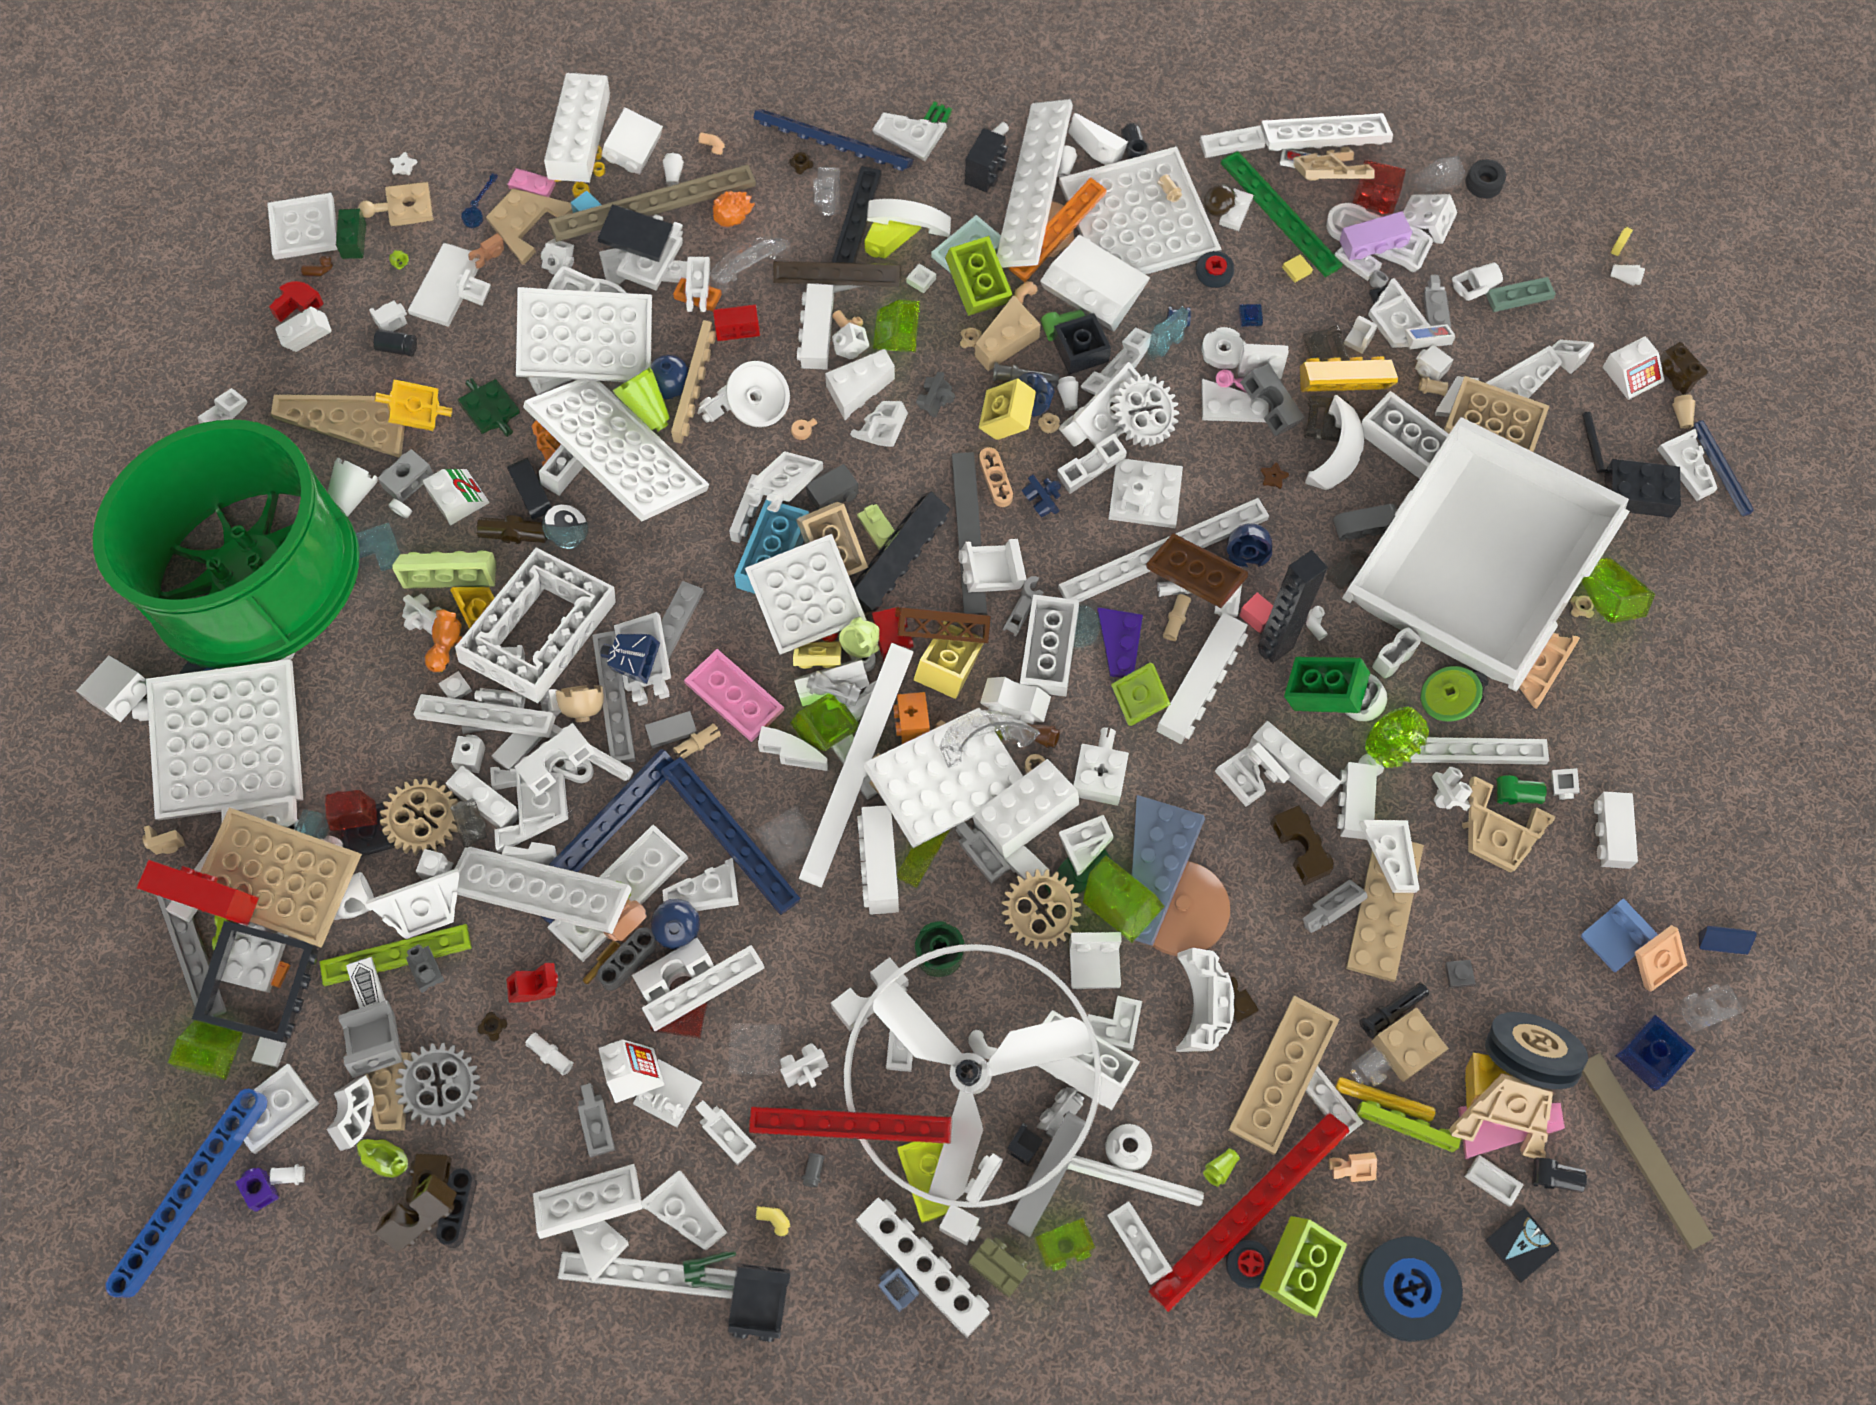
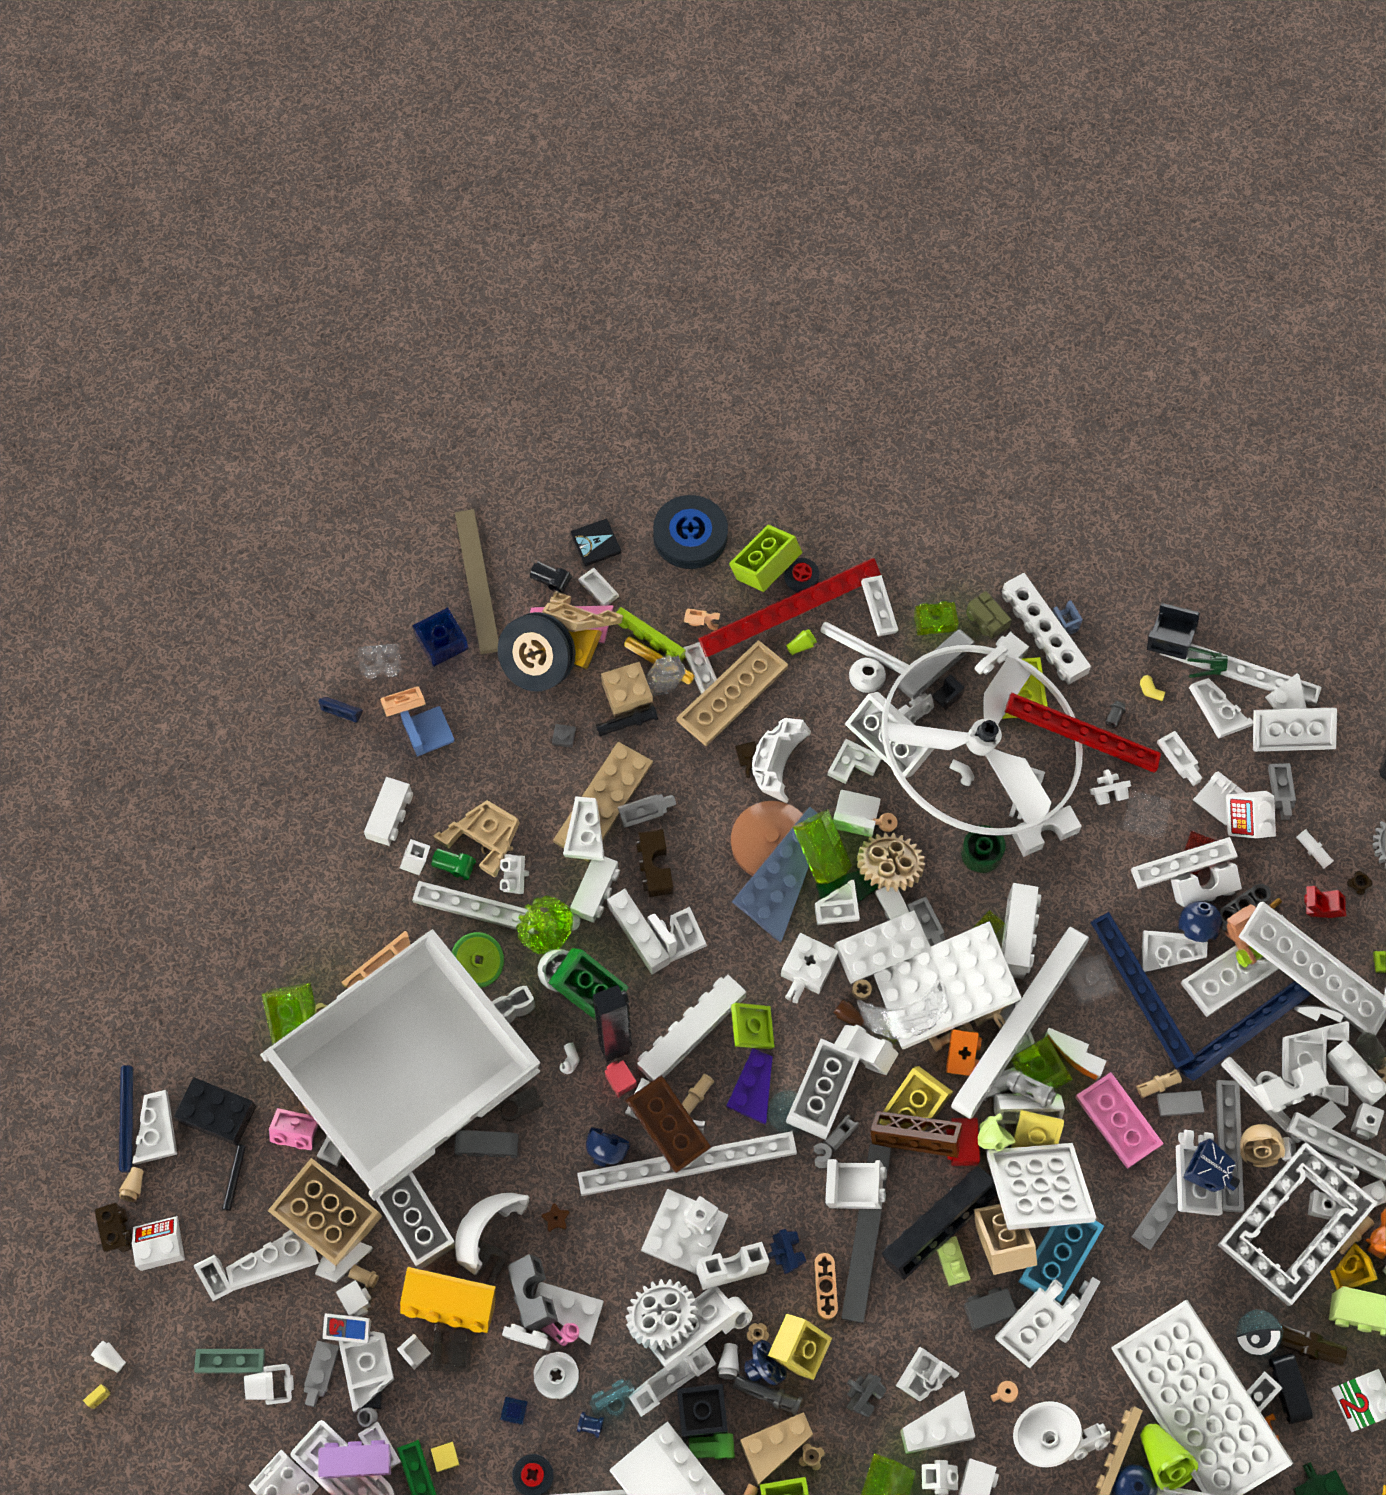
camera: 165 degrees left, 0 degrees up
(1062, 960) = (887, 822): none -> light nougat piece

